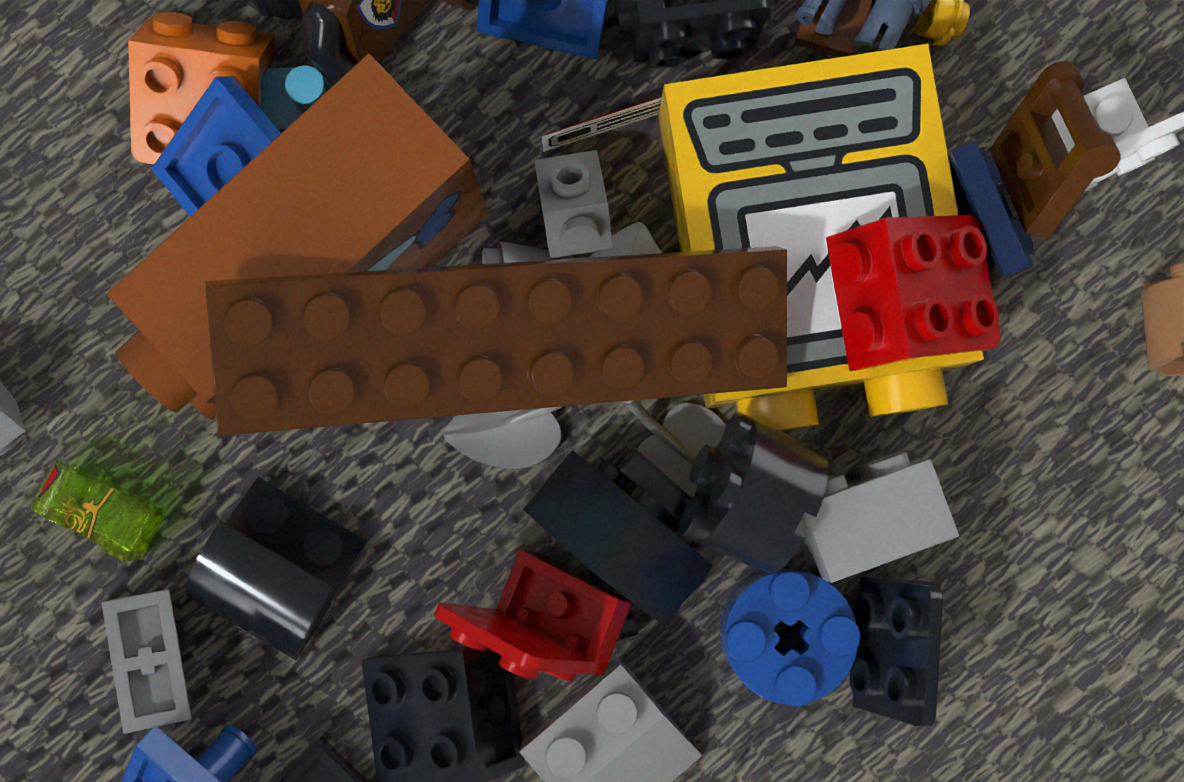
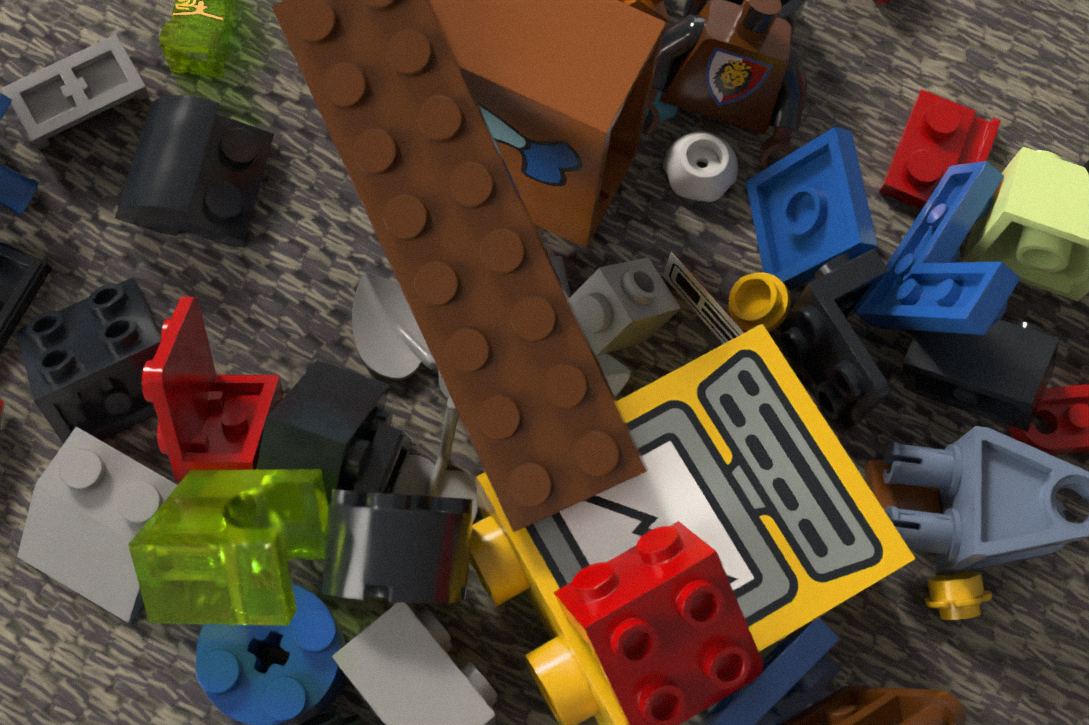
camera: 65 degrees right, 15 degrees down
(450, 87) = (695, 182): none -> white plate
(610, 72) = (759, 300): none -> yellow plate
(681, 658) = (225, 543): none -> clear neon green piece

